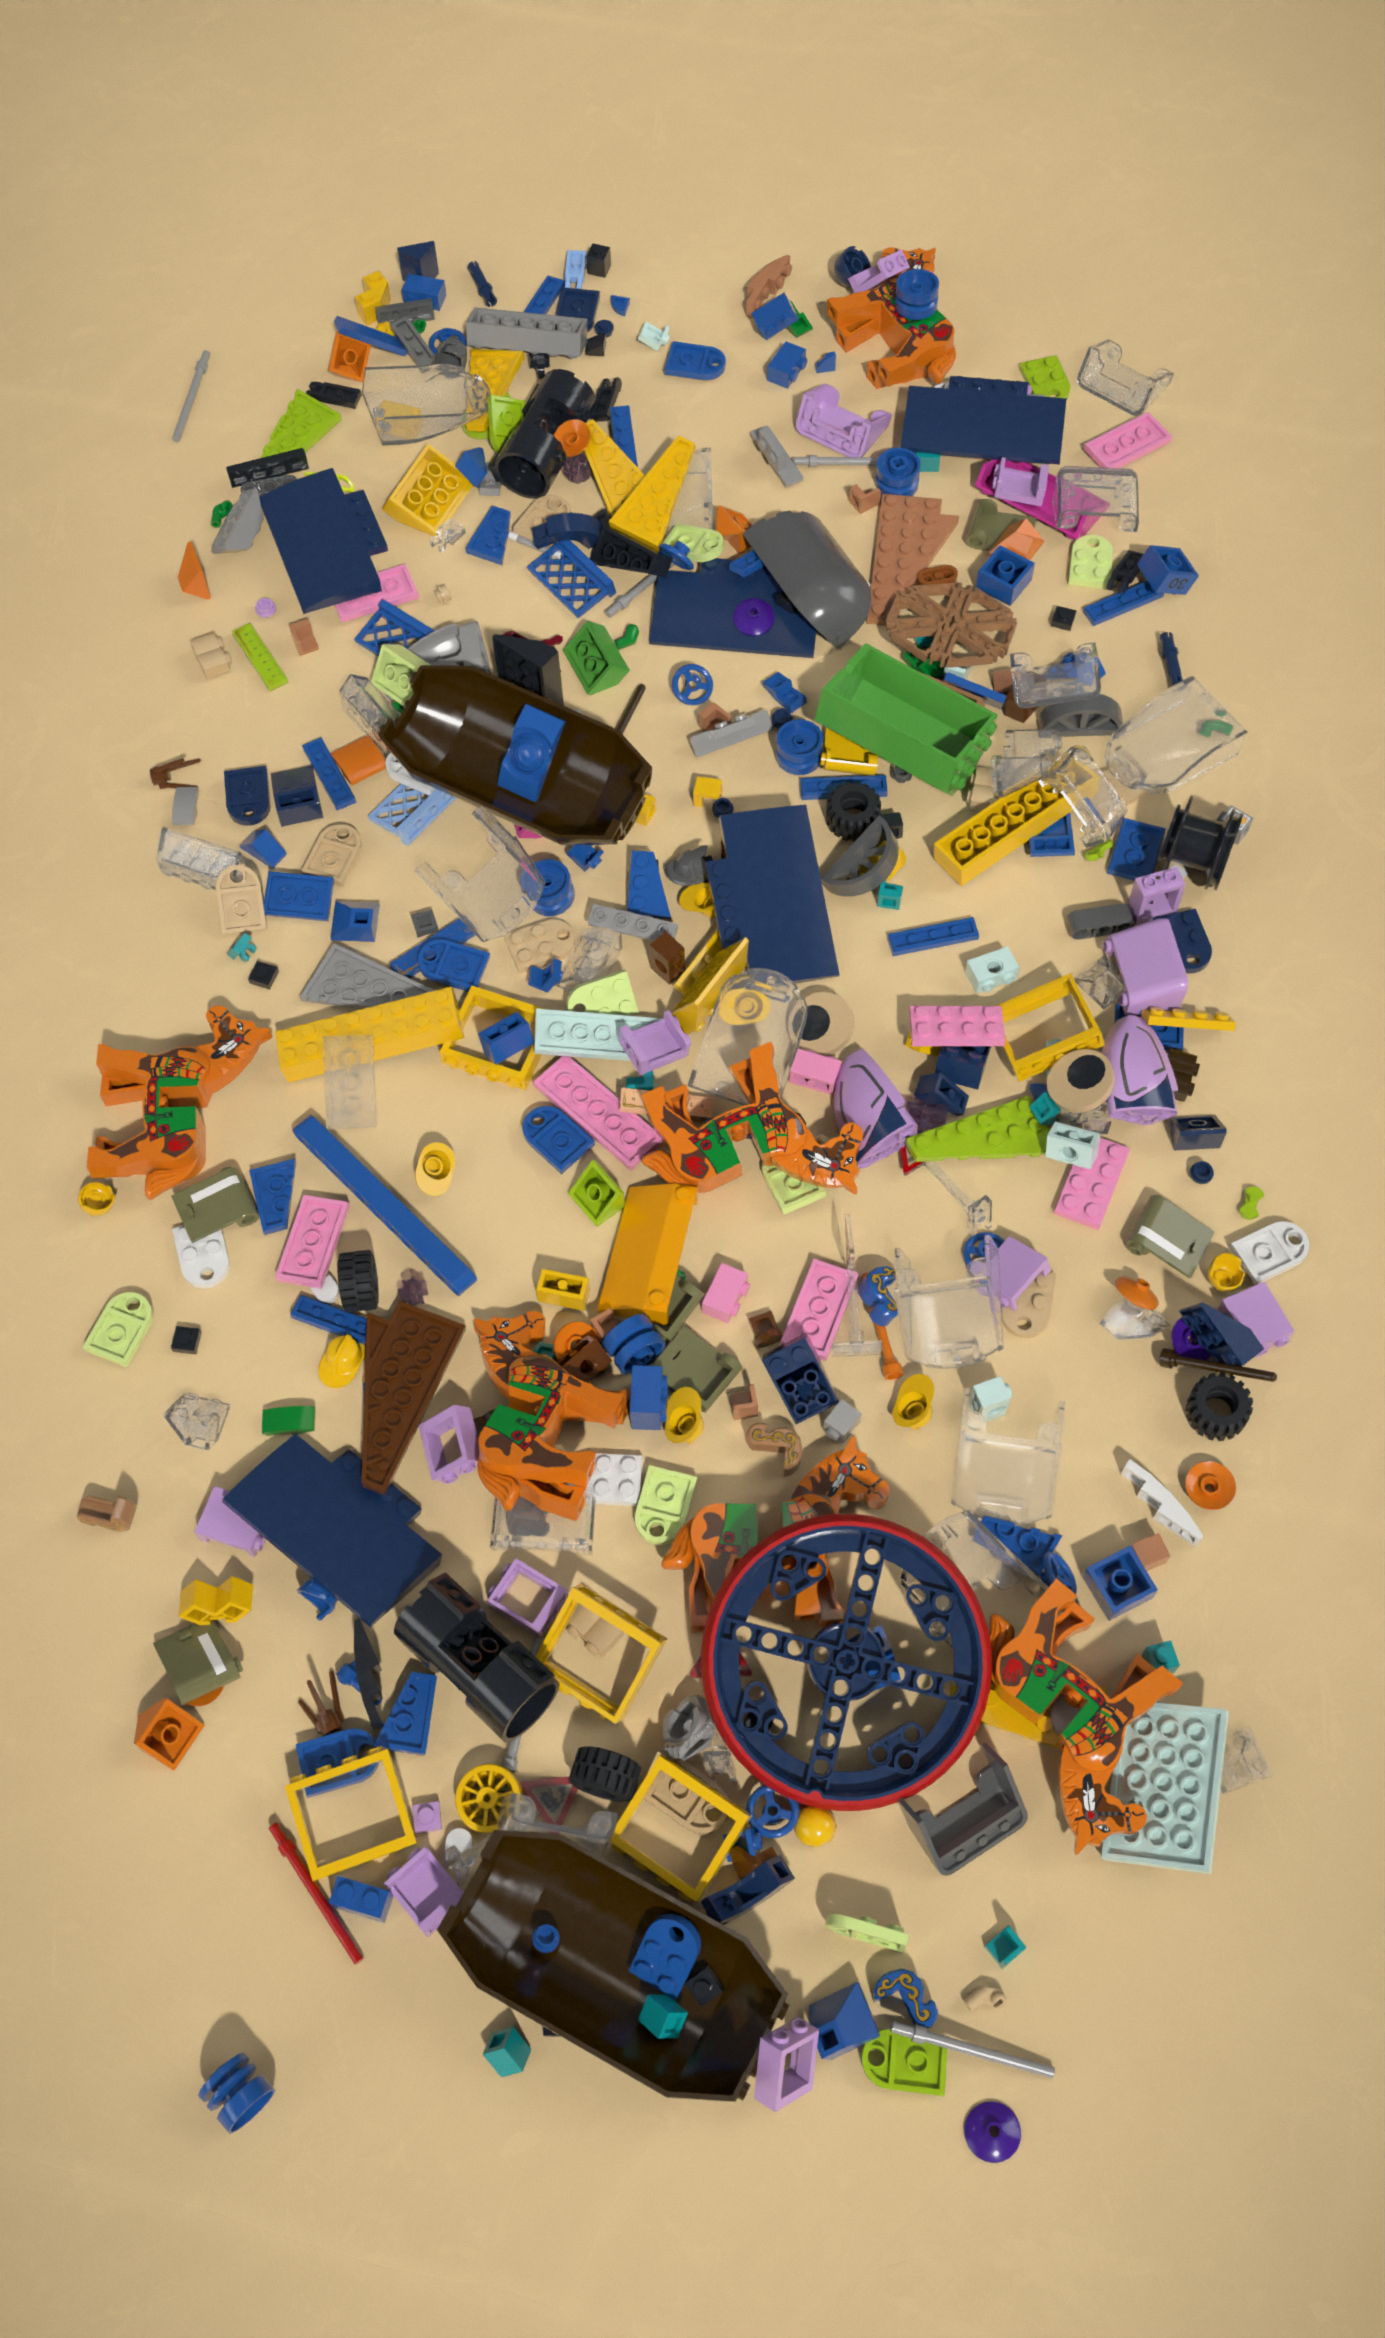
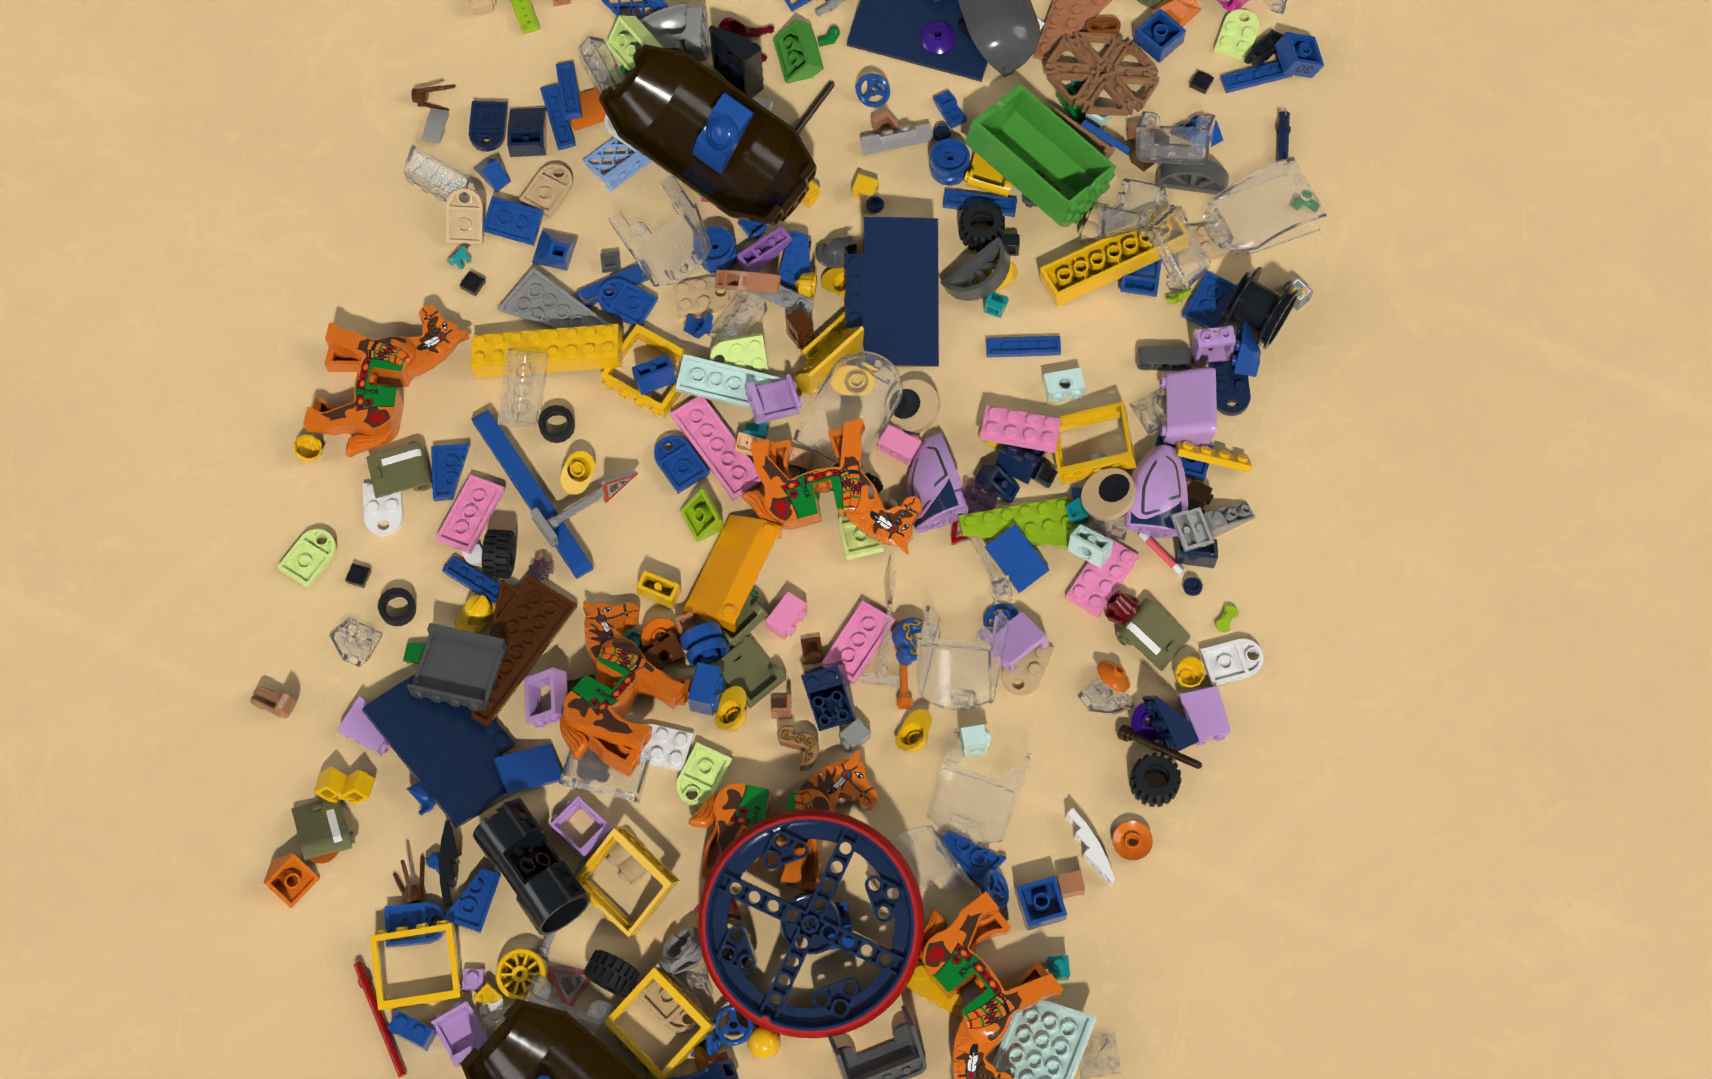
camera: 10 degrees right, 5 degrees up
(237, 1352) = (400, 620): none -> black tyre
(334, 1426) = (458, 667): none -> dark grey panel
(336, 742) = (568, 91): none -> blue tile
(395, 1102) = (553, 411): none -> black tyre
(446, 1537) = (528, 769): none -> blue tile
(450, 1833) = (487, 995): none -> yellow tile
(479, 1180) = (609, 489): none -> light grey piece
(595, 913) = (747, 281): none -> nougat slope
(605, 879) = (763, 251): none -> medium lavender slope
(665, 906) = (807, 285): none -> yellow piece
(986, 1173) = (1017, 558): none -> blue tile
(995, 1075) = (1044, 475): none -> black plate
(1127, 1209) = (1123, 606): none -> dark red piece
(1154, 1141) = (1160, 552): none -> coral bar
(1189, 1104) = (1192, 529): none -> light grey slope
(1197, 898) = (1246, 352): none -> blue slope
(1217, 1090) = (1228, 518): none -> light grey slope

